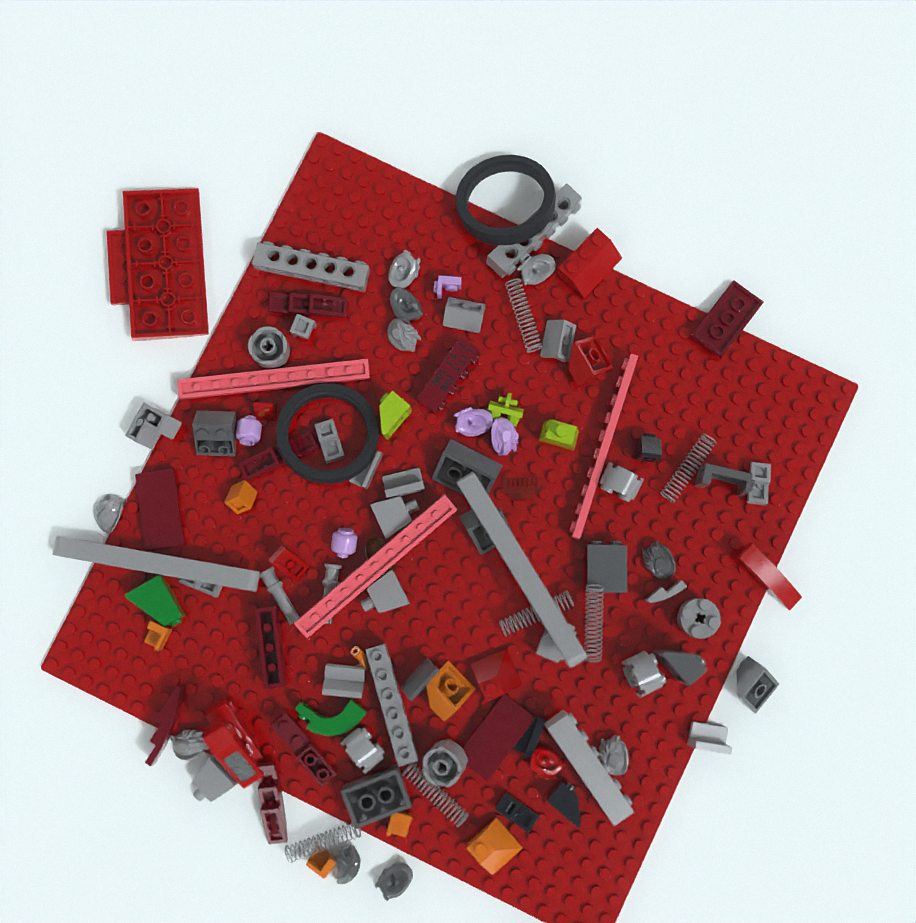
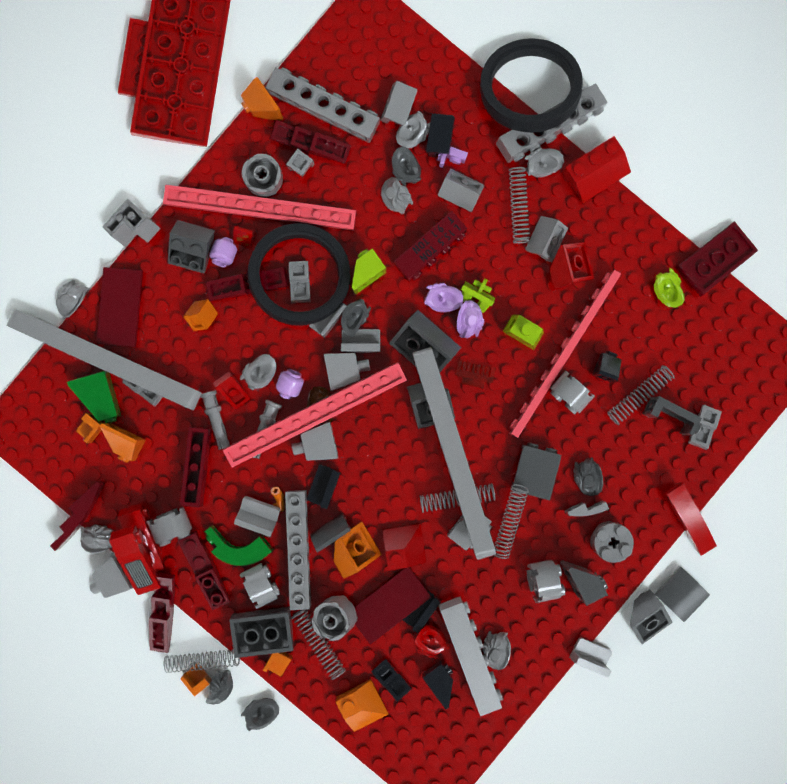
camera: 10 degrees right, 5 degrees up
(193, 641) = (122, 442): none -> orange slope
(250, 279) = (259, 102): none -> orange slope
(259, 712) = (169, 526): none -> light grey brick
(311, 538) = (259, 372): none -> light grey hat
(384, 248) = (399, 103): none -> light grey panel
(391, 460) = (354, 316): none -> dark grey hat
(401, 635) = (323, 486): none -> black panel
(430, 267) = (440, 134): none -> black panel
(687, 359) = (668, 289): none -> lime hat
(781, 653) = (682, 594): none -> dark grey slope

